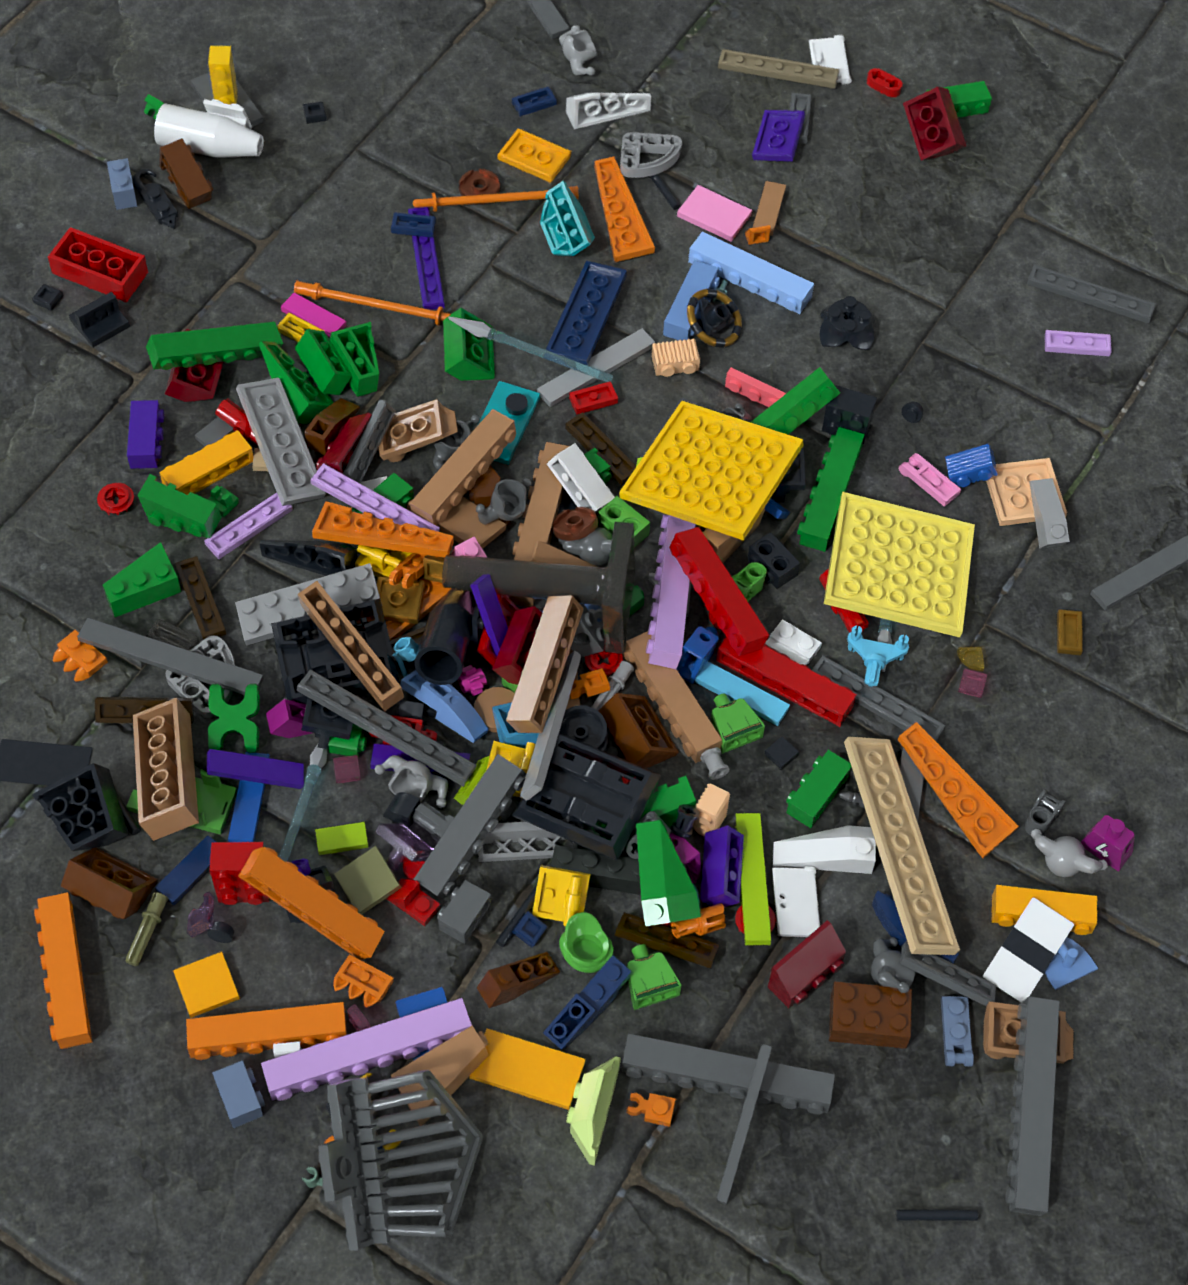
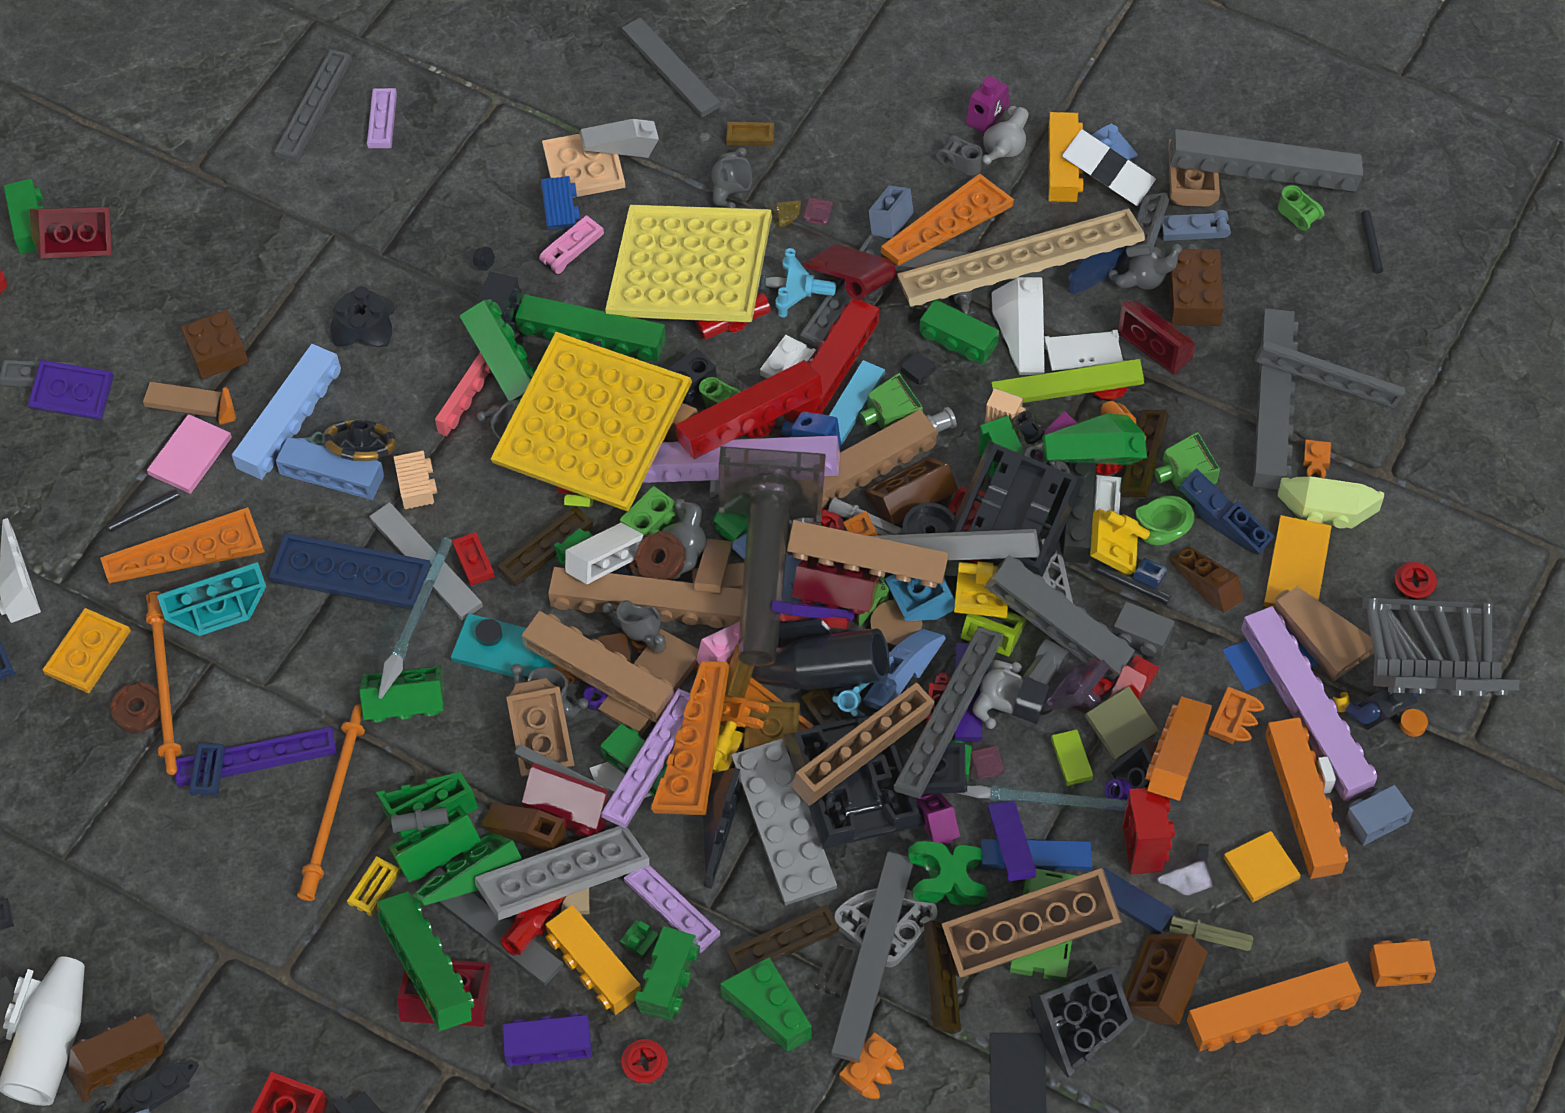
camera: 90 degrees left, 0 degrees up
(84, 1088) = (1402, 963): none -> orange brick
(313, 314) = (349, 873): dark pink tile -> none
(315, 1181) = (1448, 734): sand green hand -> none
(333, 341) = (419, 819): none -> dark grey pin
(357, 1018) = (1280, 711): clear pink tile -> none
(489, 1171) = (1422, 574): none -> red gear
(616, 902) = (1107, 493): none -> white tile
(637, 143) = (83, 535): light grey beam -> none
(722, 867) = (1050, 404): dark purple brick -> none
(820, 223) = (214, 344): none -> reddish brown brick
(891, 696) = (861, 270): none -> dark red door
(962, 736) = (891, 211): none -> sand blue brick
(974, 1142) = (1299, 207): none -> bright green piece
(1009, 607) = (730, 176): none -> dark grey piece

